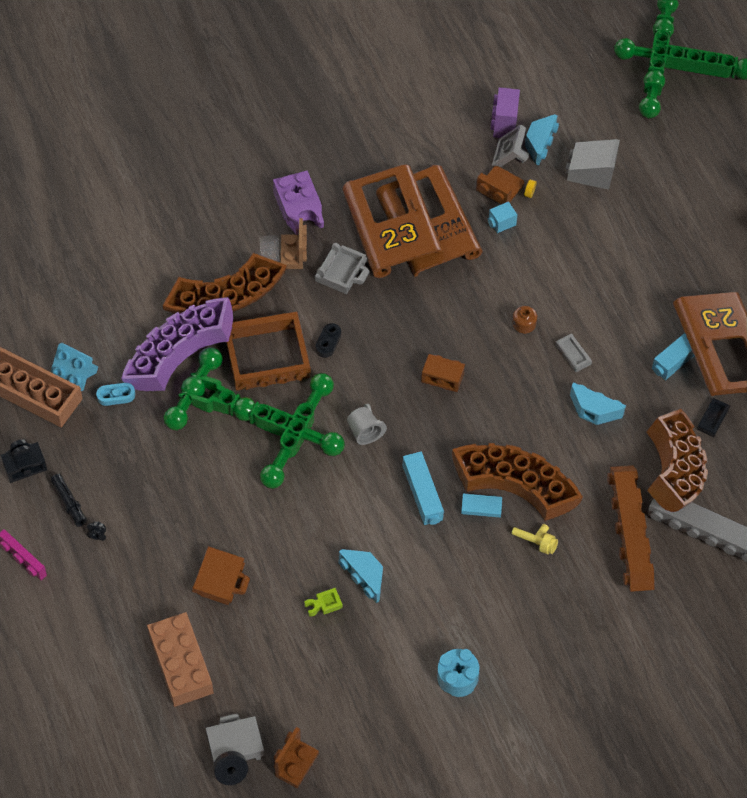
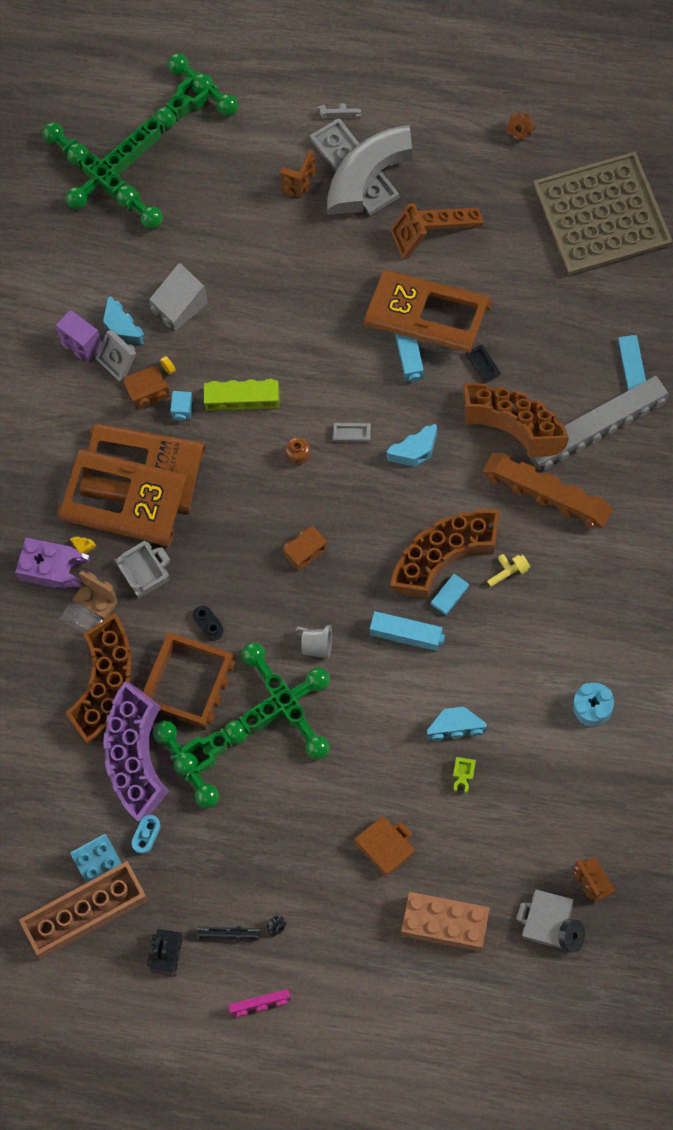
camera: 50 degrees left, 10 degrees up
(332, 217) = (83, 545): none -> yellow tile
(544, 254) = (241, 395): none -> lime brick

